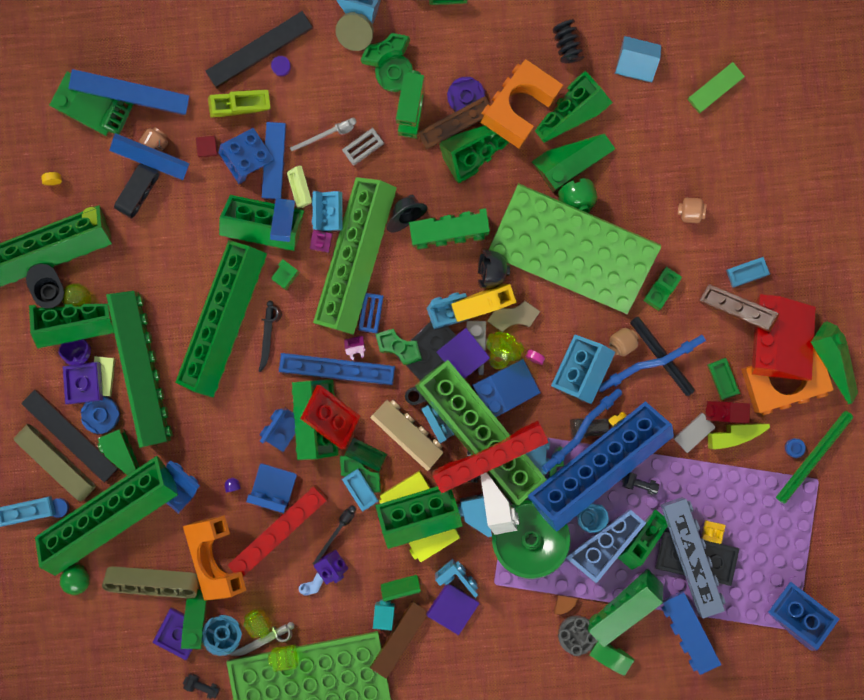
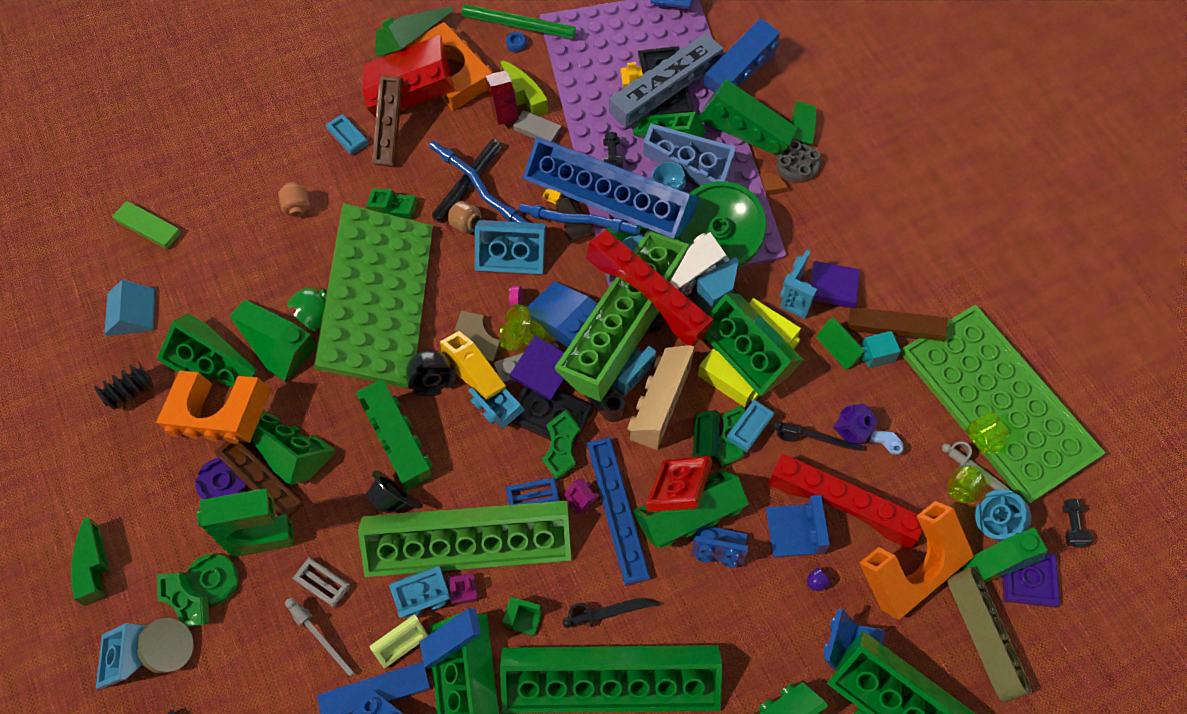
camera: 115 degrees left, 25 degrees down
(723, 378) = (469, 121): green tile -> none

